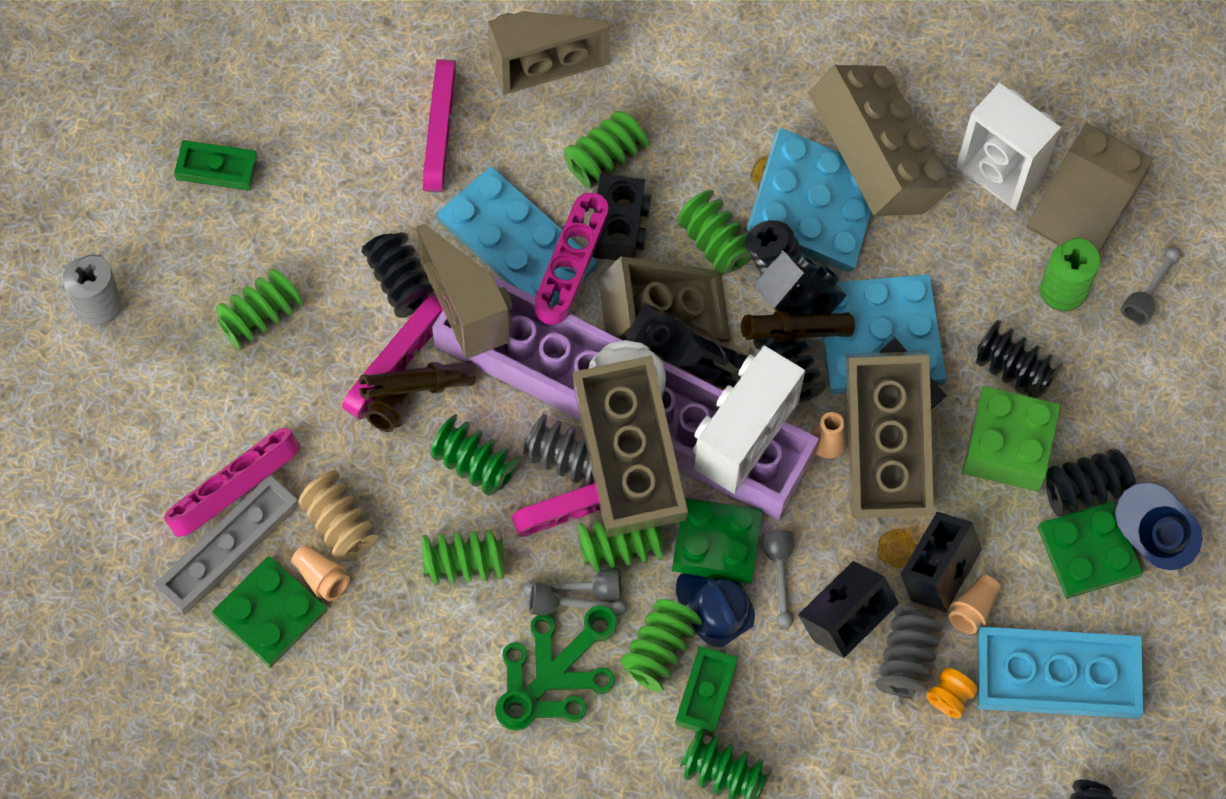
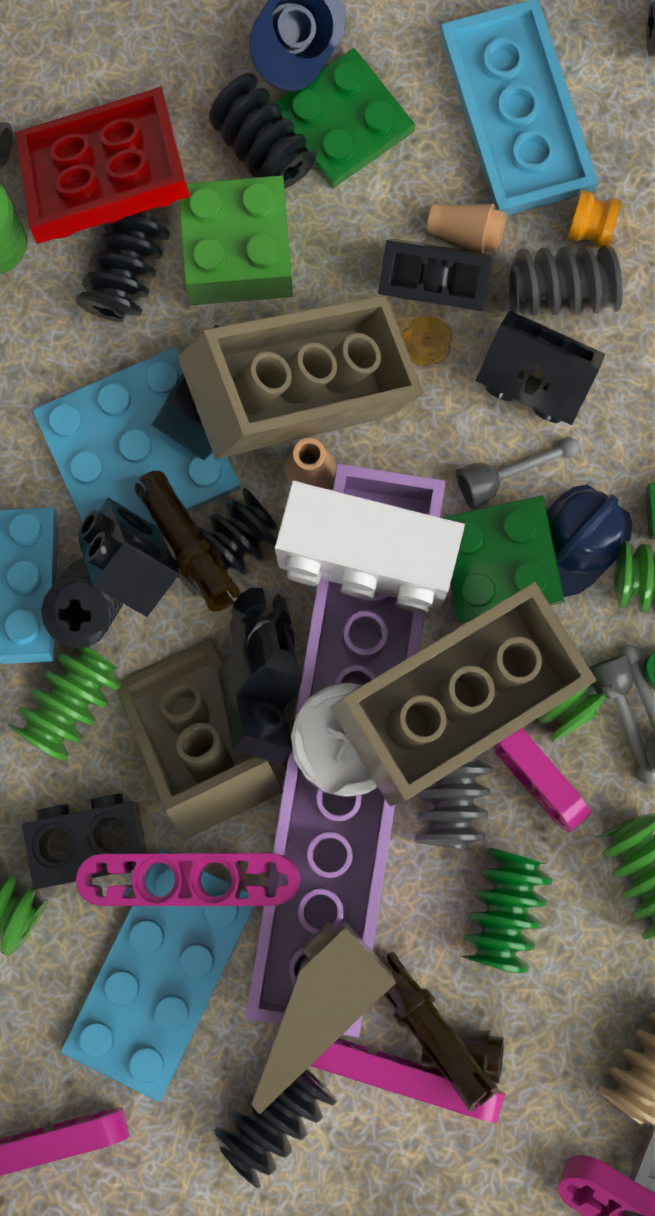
camera: 105 degrees left, 15 degrees up
(1092, 362) = (100, 165): none -> red plate

